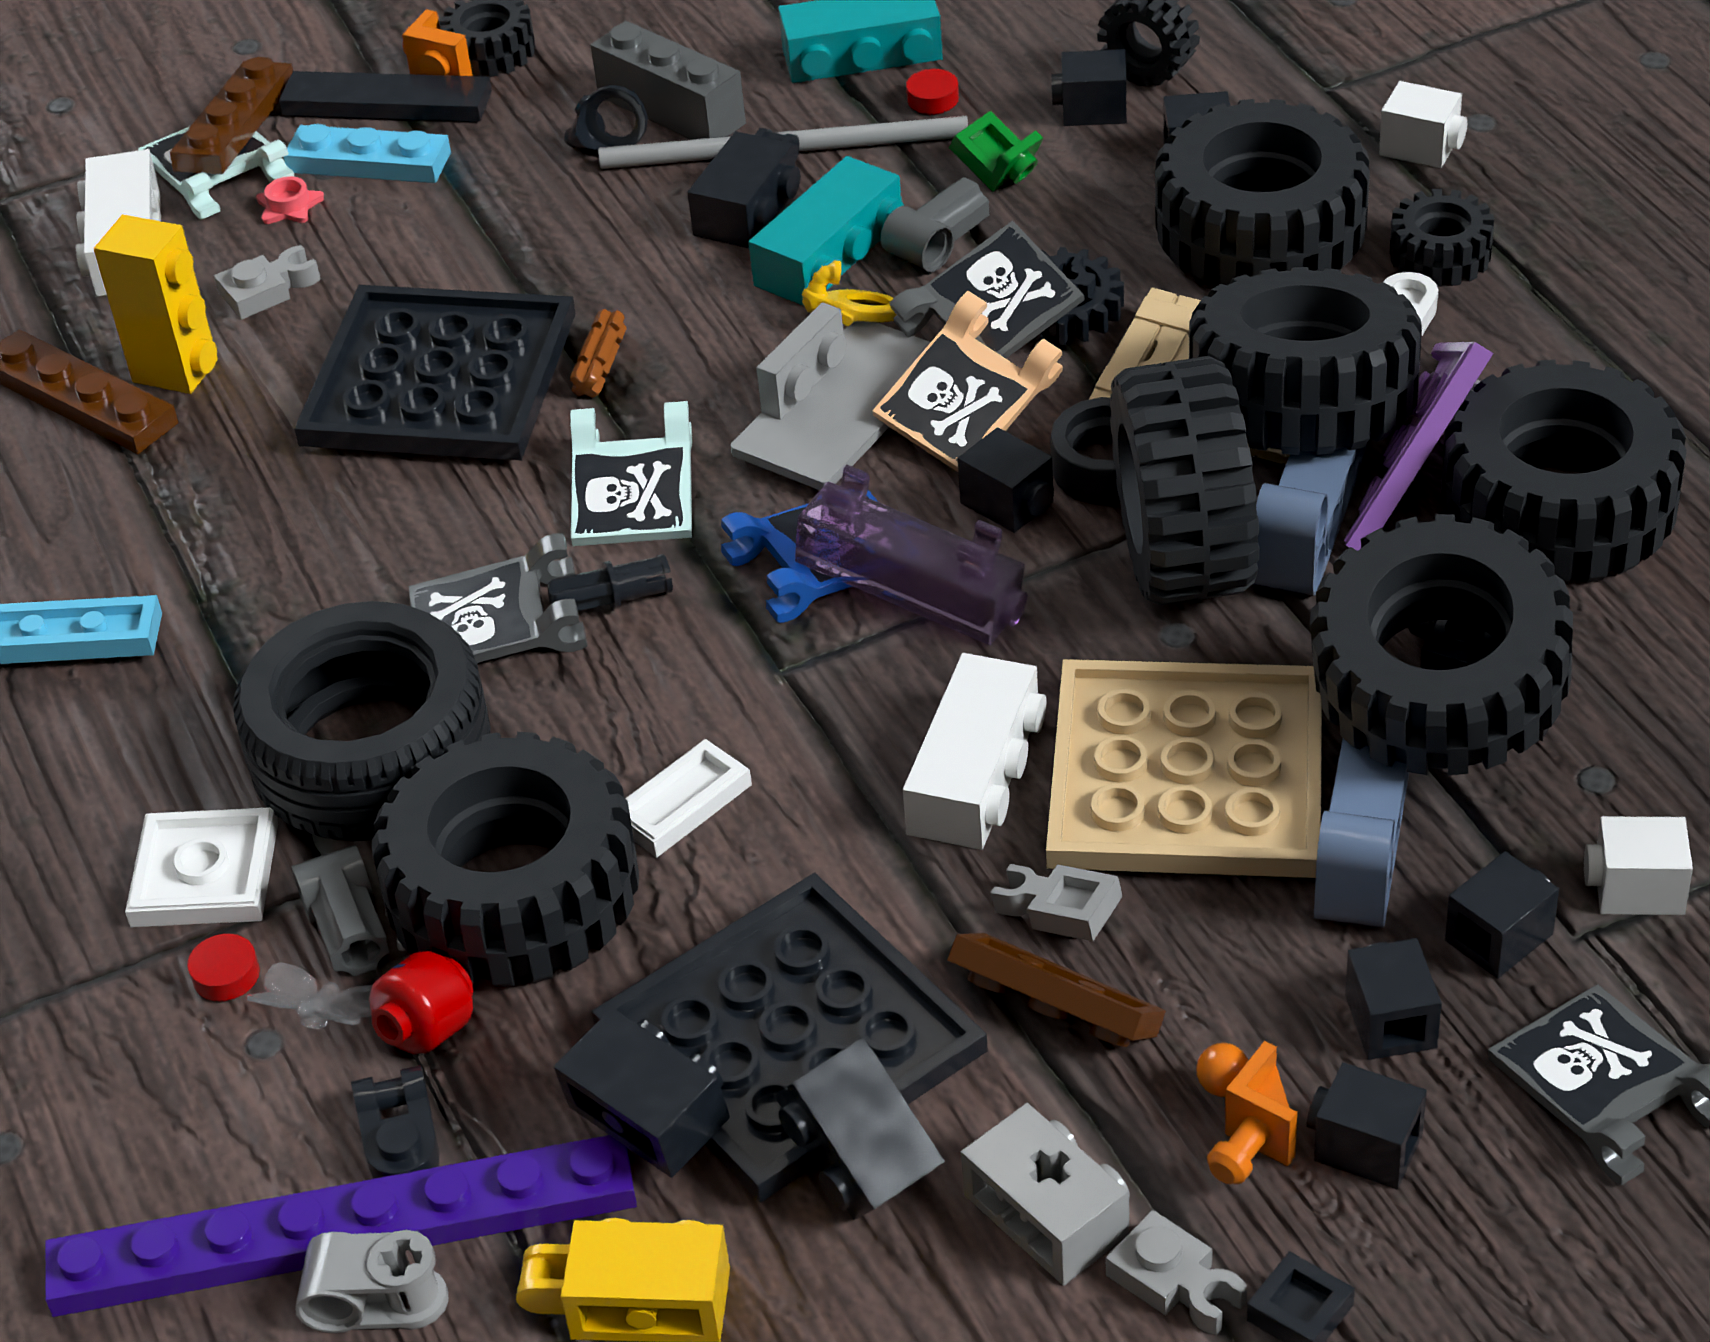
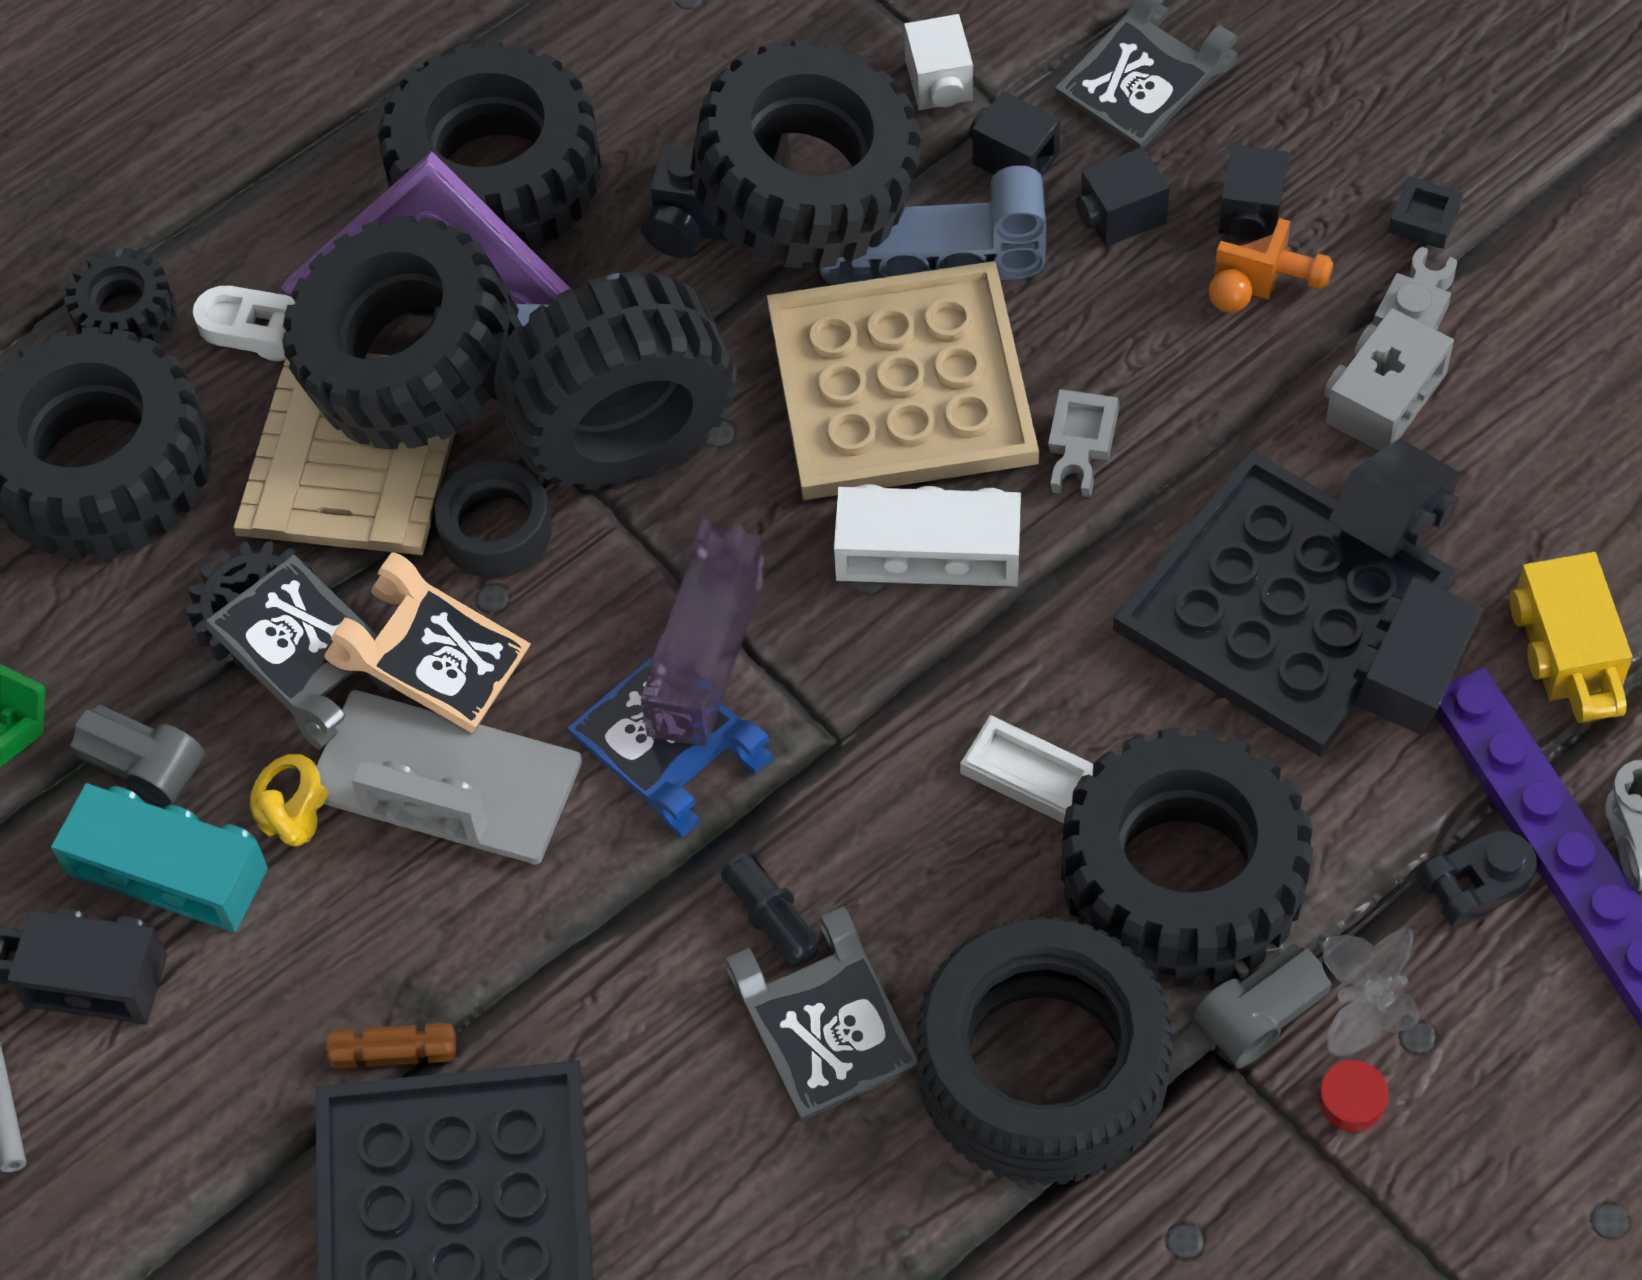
camera: 105 degrees left, 15 degrees up
(202, 867) = (1235, 1170): white tile -> none
(421, 1002) = (1355, 888): red head -> none
(631, 486) = (599, 945): flag -> none
(1006, 480) = (555, 590): black brick -> none
(1056, 989) = (1179, 418): reddish brown plate -> none

